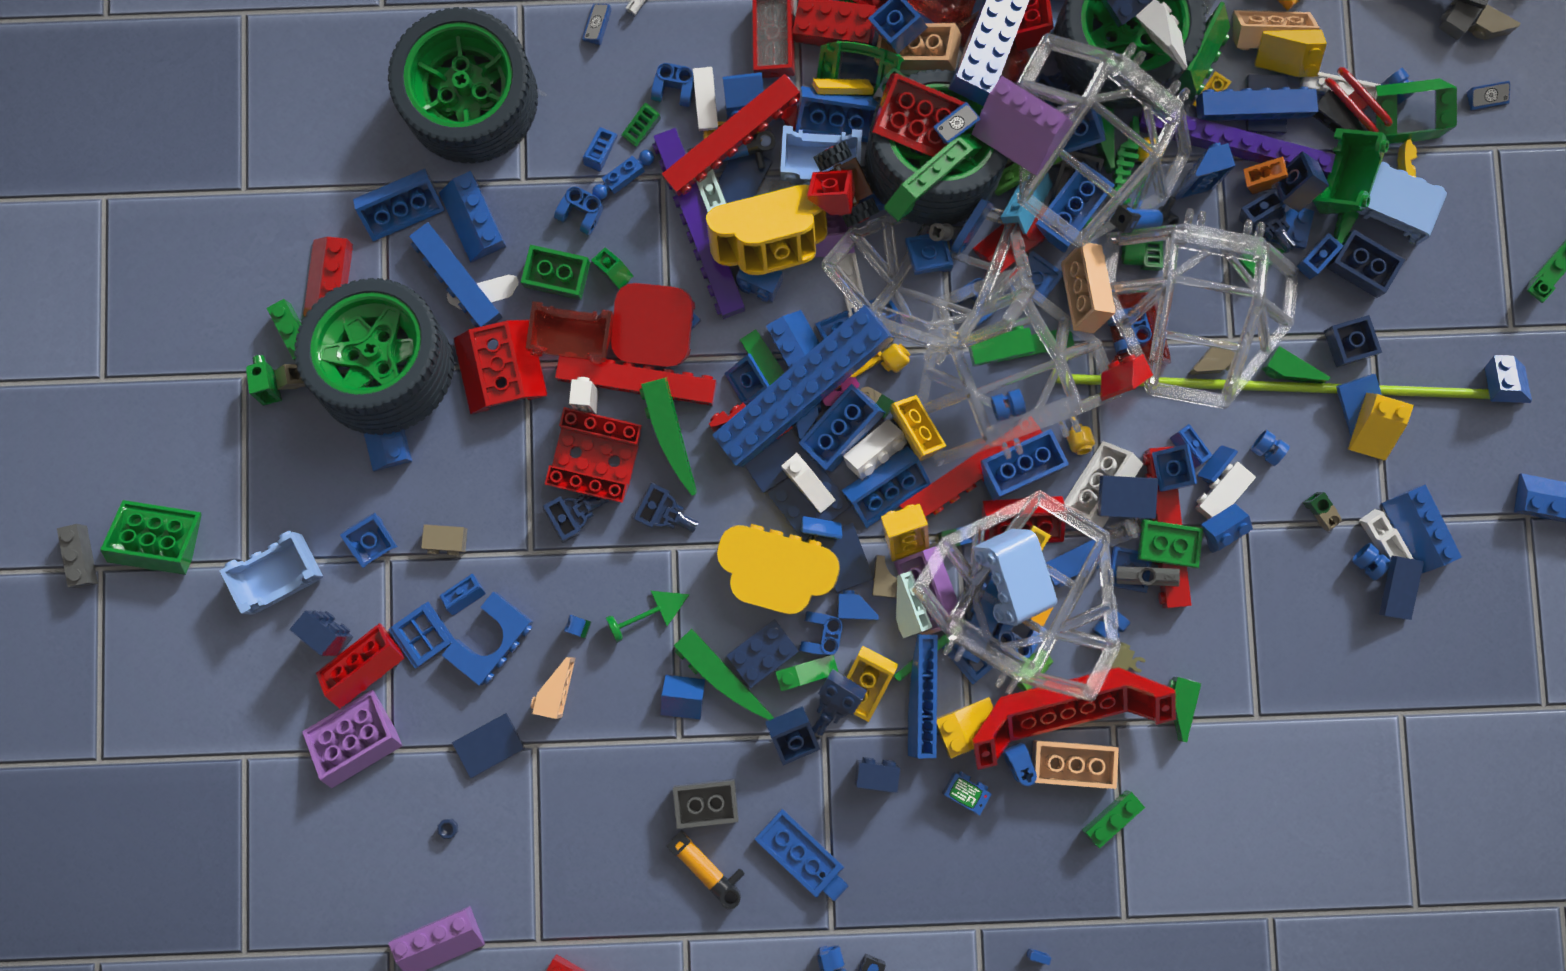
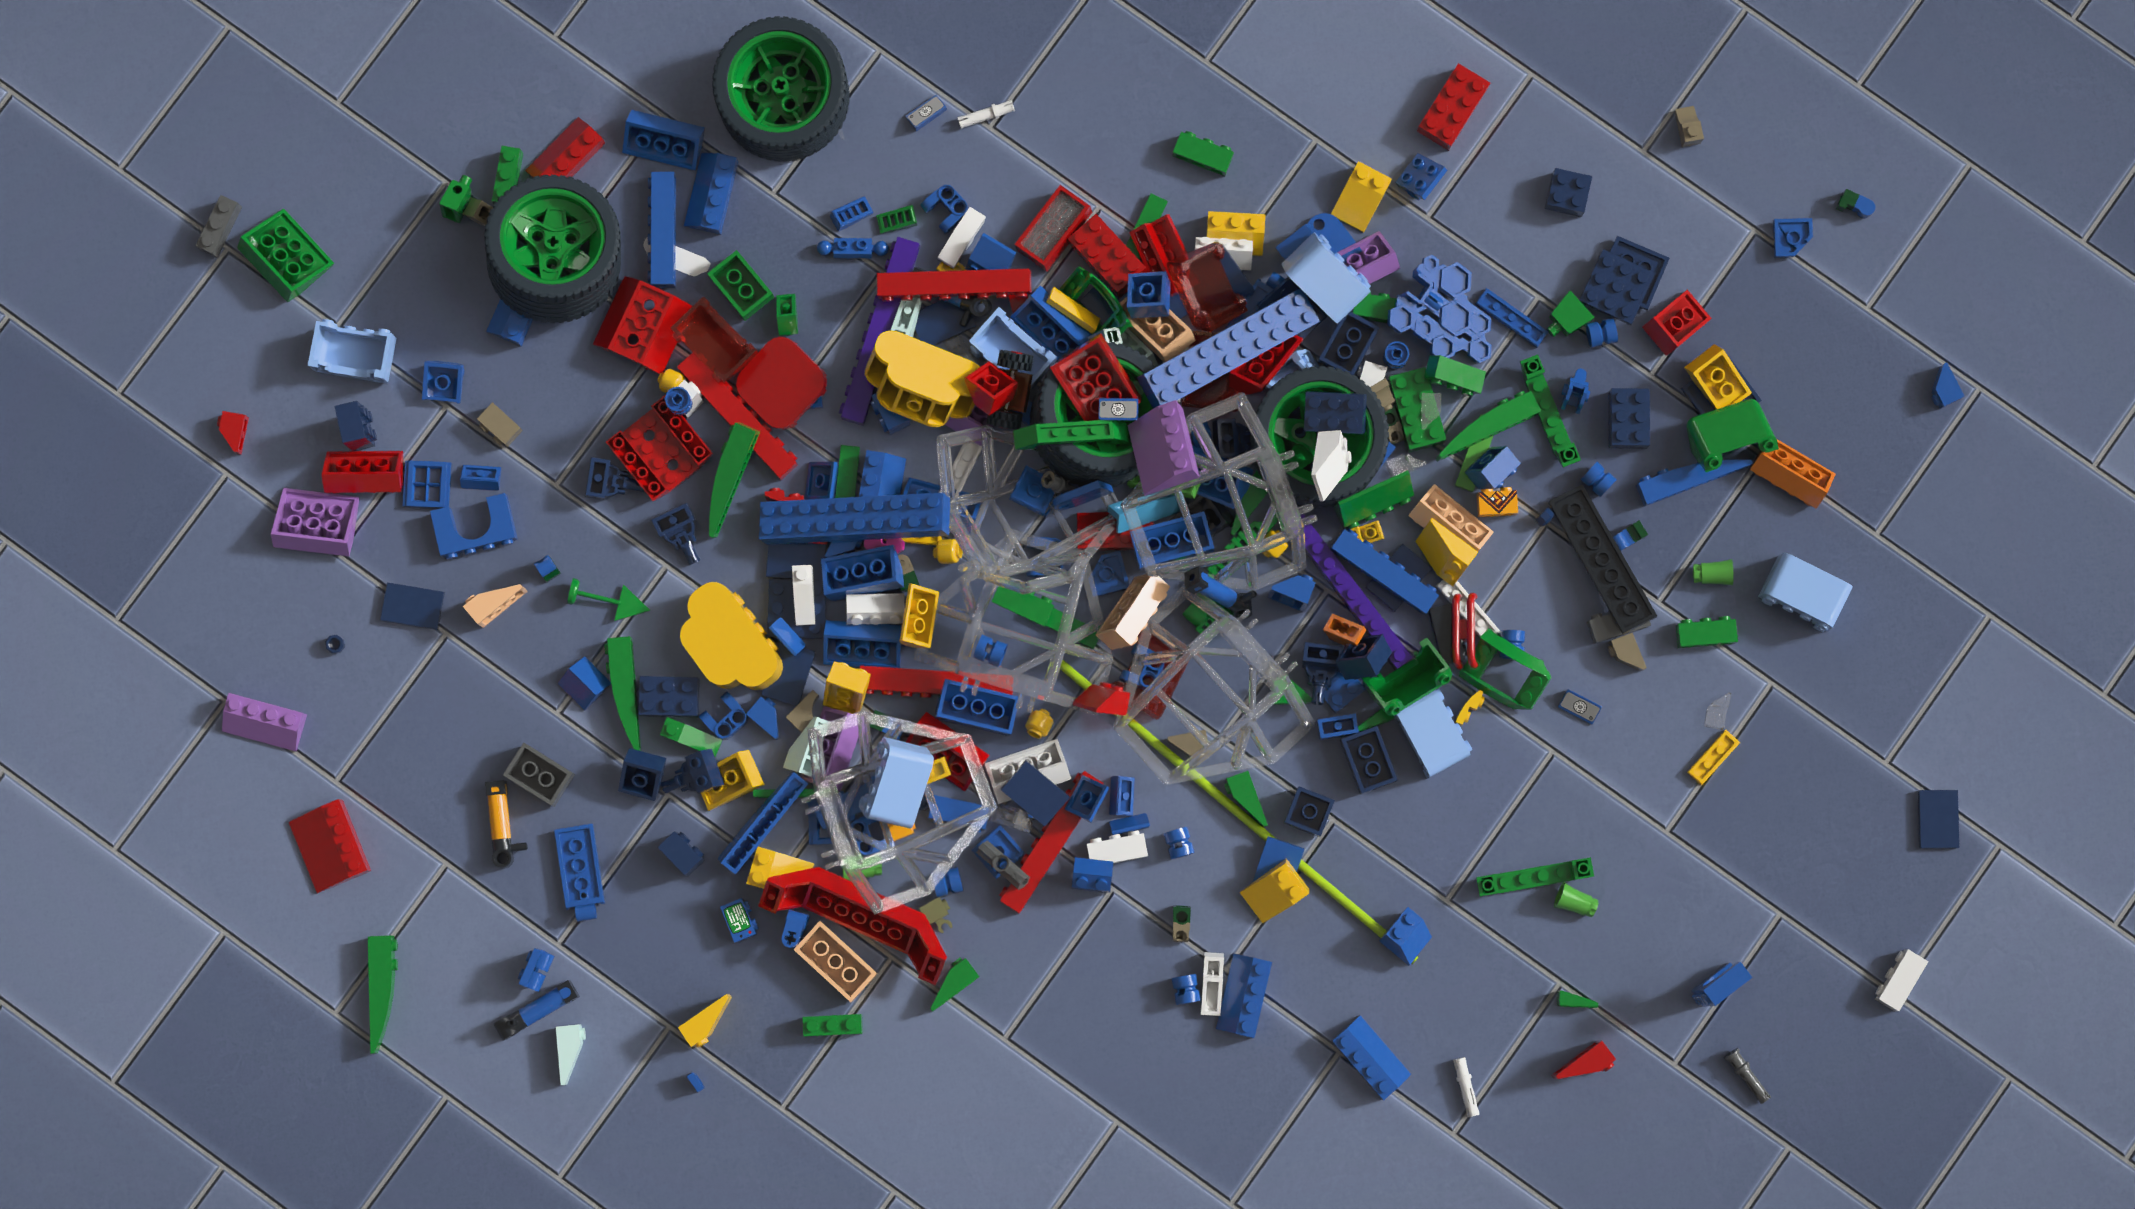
camera: 40 degrees right, 0 degrees up
(221, 715) = (233, 428): none -> red slope
(559, 394) = (670, 379): none -> yellow head
(581, 399) = (678, 401): none -> blue wheel
(586, 198) = (803, 247): blue piece -> none
(1007, 906) = (703, 1024): none -> yellow slope
(1170, 544) = (1040, 854): green tile -> none
(1401, 587) = (1190, 1025): dark blue tile -> none

